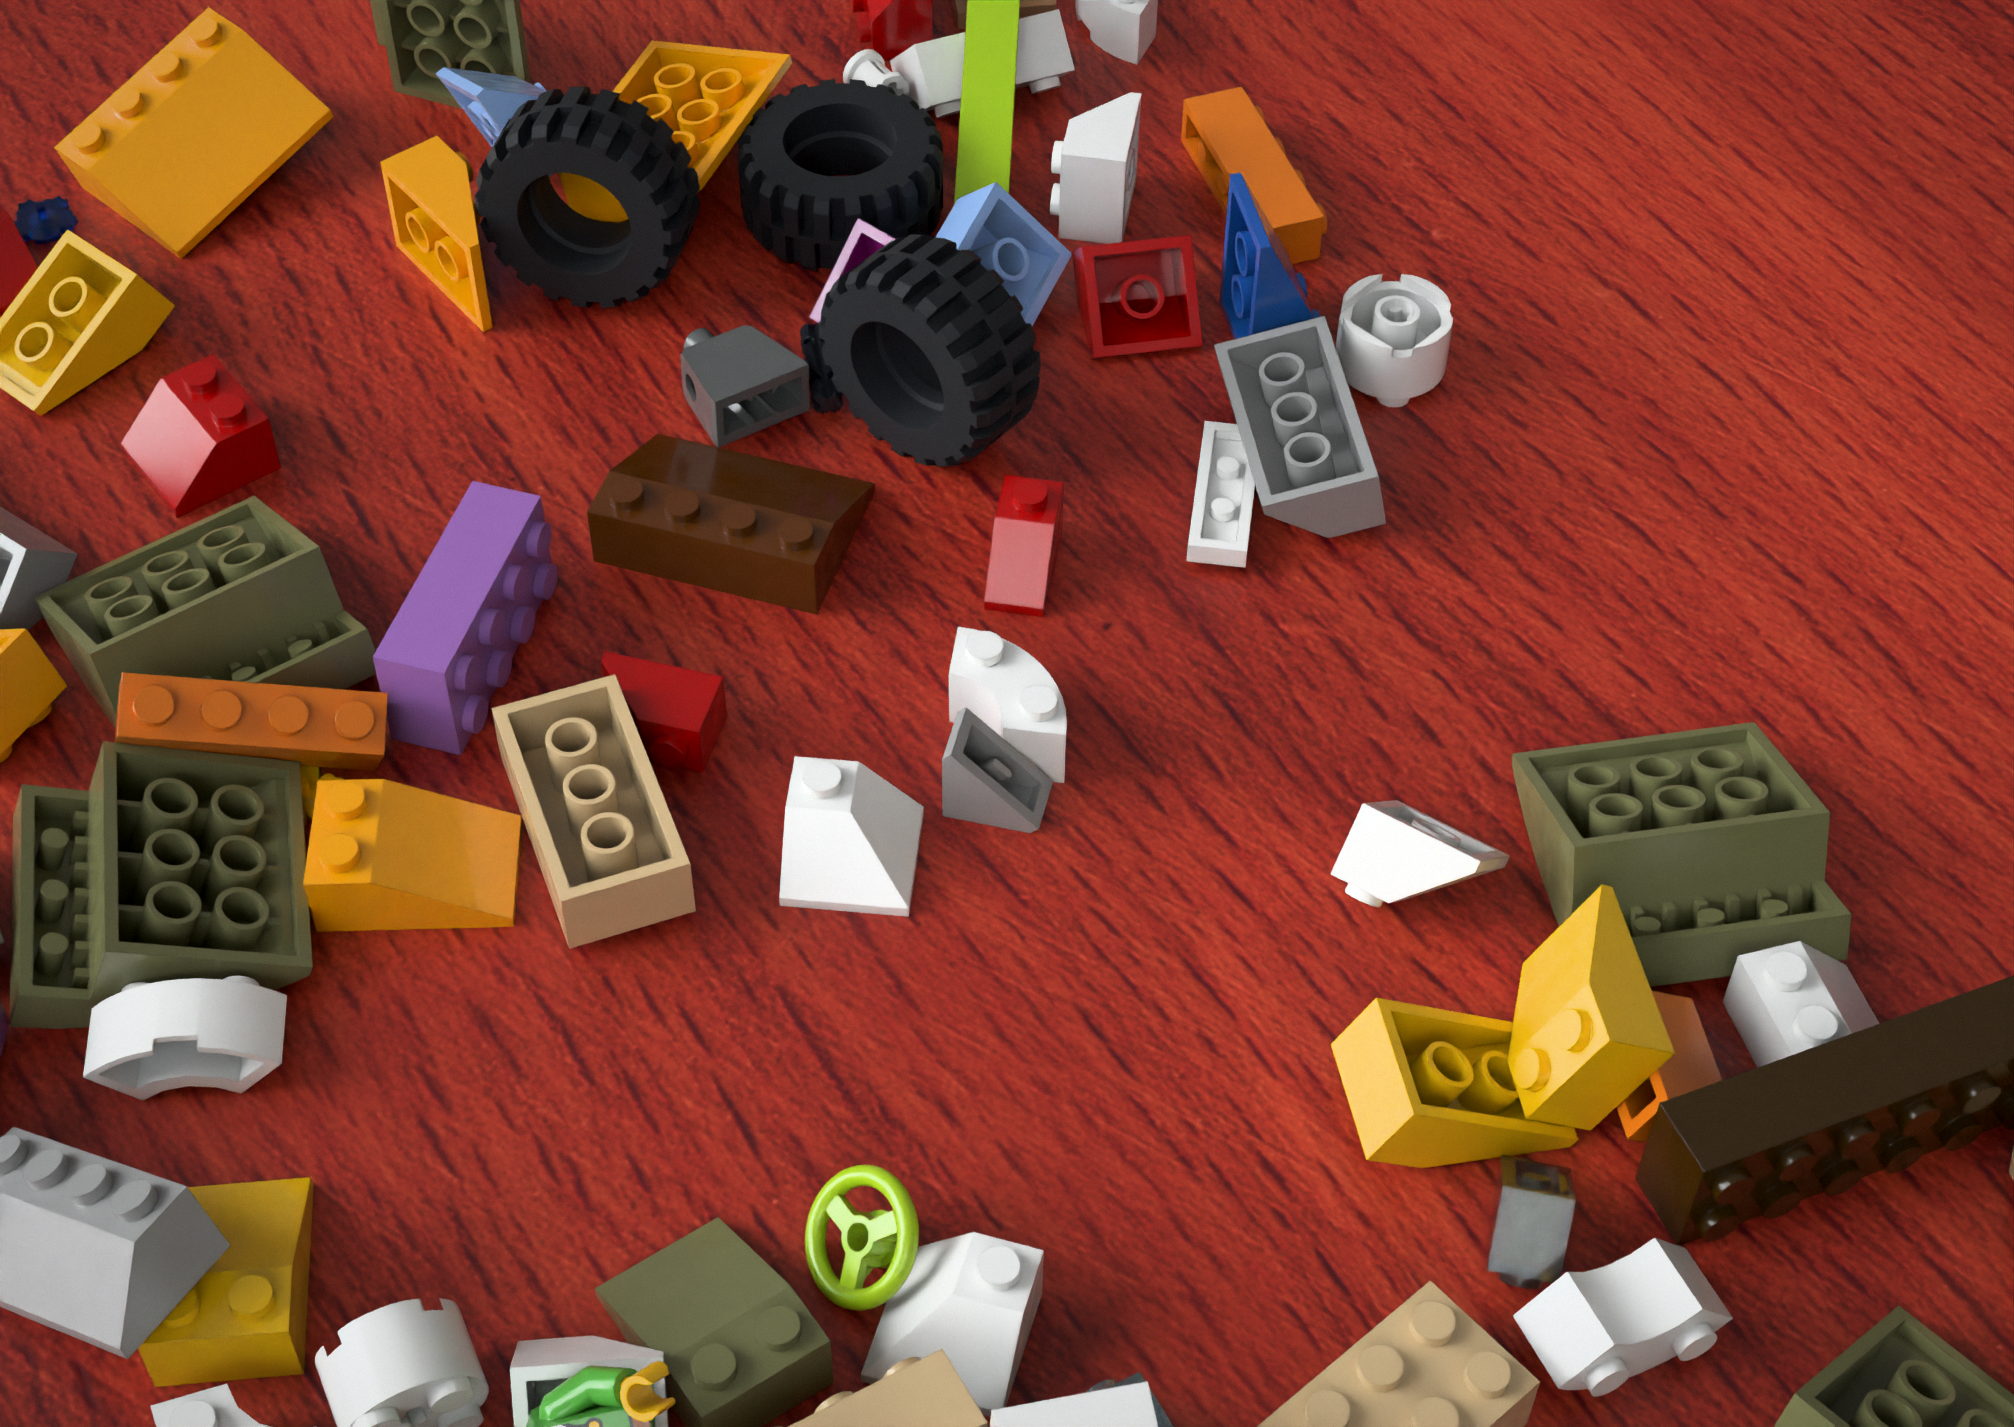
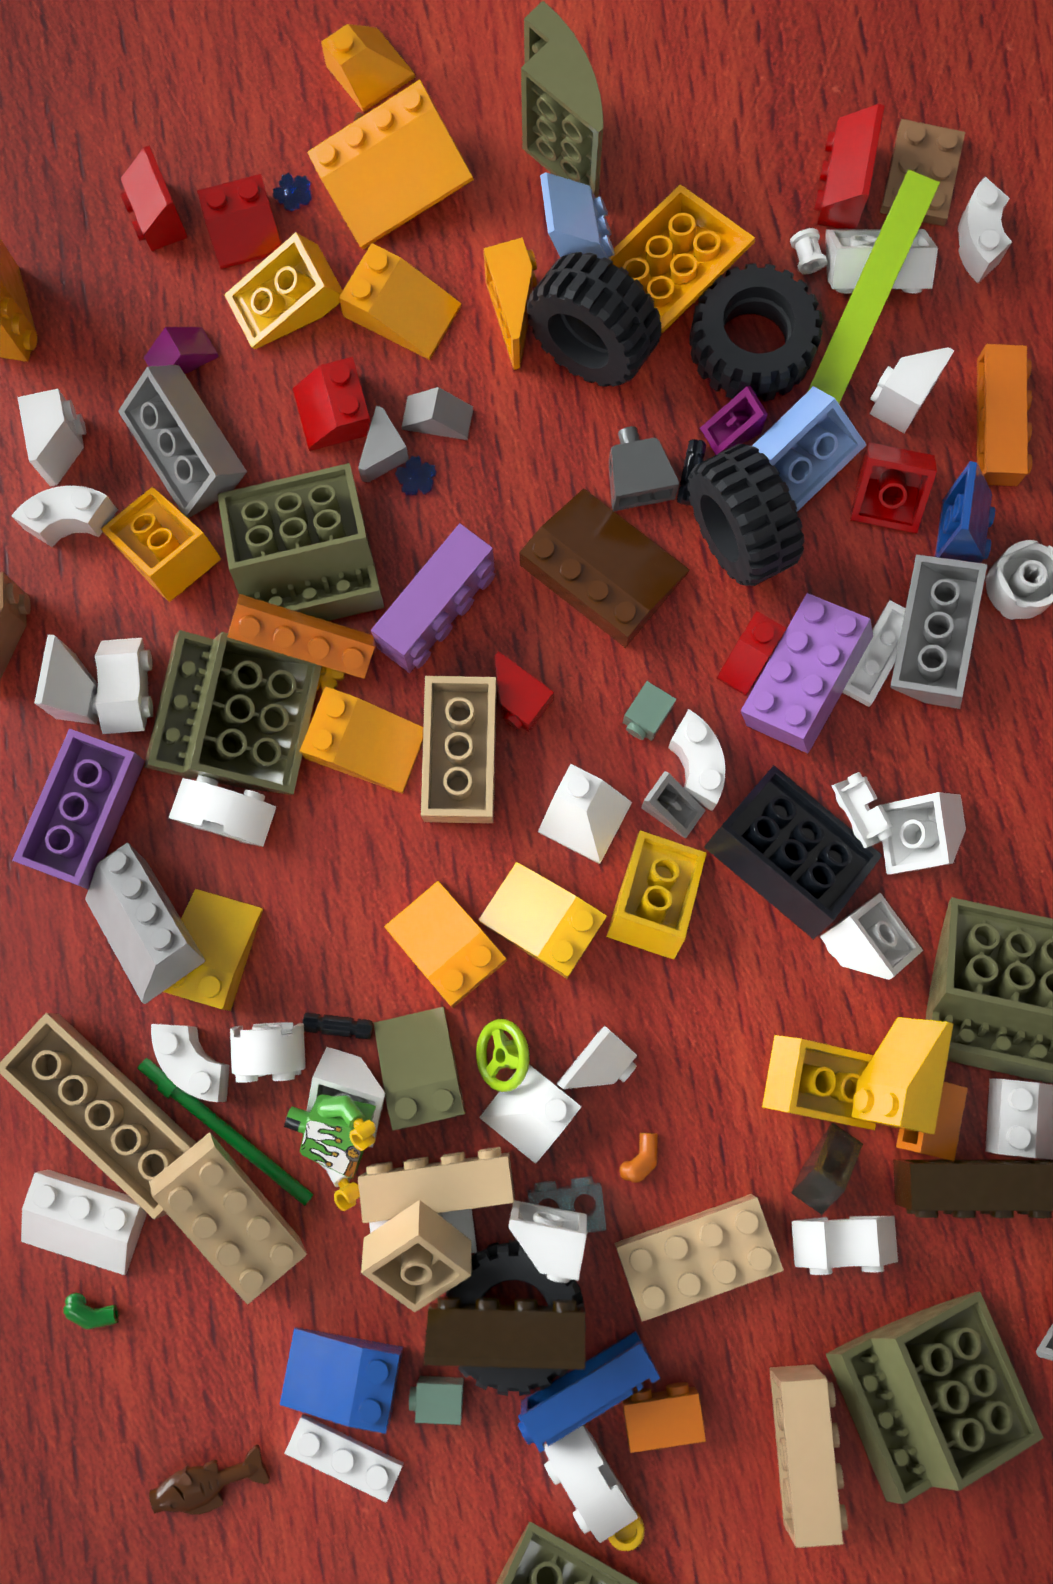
camera: 25 degrees right, 30 degrees up
(95, 49) = (365, 64): none -> light orange slope
(261, 292) = (398, 302): none -> light orange slope
(306, 466) = (382, 449): none -> light grey slope
(373, 498) = (416, 476): none -> clear blue plant
(379, 405) = (437, 414): none -> light grey slope
(531, 1314) = (337, 1025): none -> black axle
(690, 1113) = (445, 944): none -> light orange slope
(849, 1016) = (542, 919): none -> yellow slope
(894, 669) = (648, 712): none -> sand green brick
(1029, 919) = (657, 895): none -> yellow slope
(1046, 1176) = (600, 1063): none -> white slope
(1124, 538) = (807, 672): none -> medium lavender brick
(1200, 1333) = (644, 1162): none -> orange arm
(1222, 786) = (793, 852): none -> black slope
(1327, 703) = (867, 824): none -> white hinge
(1410, 684) = (924, 832): none -> white slope

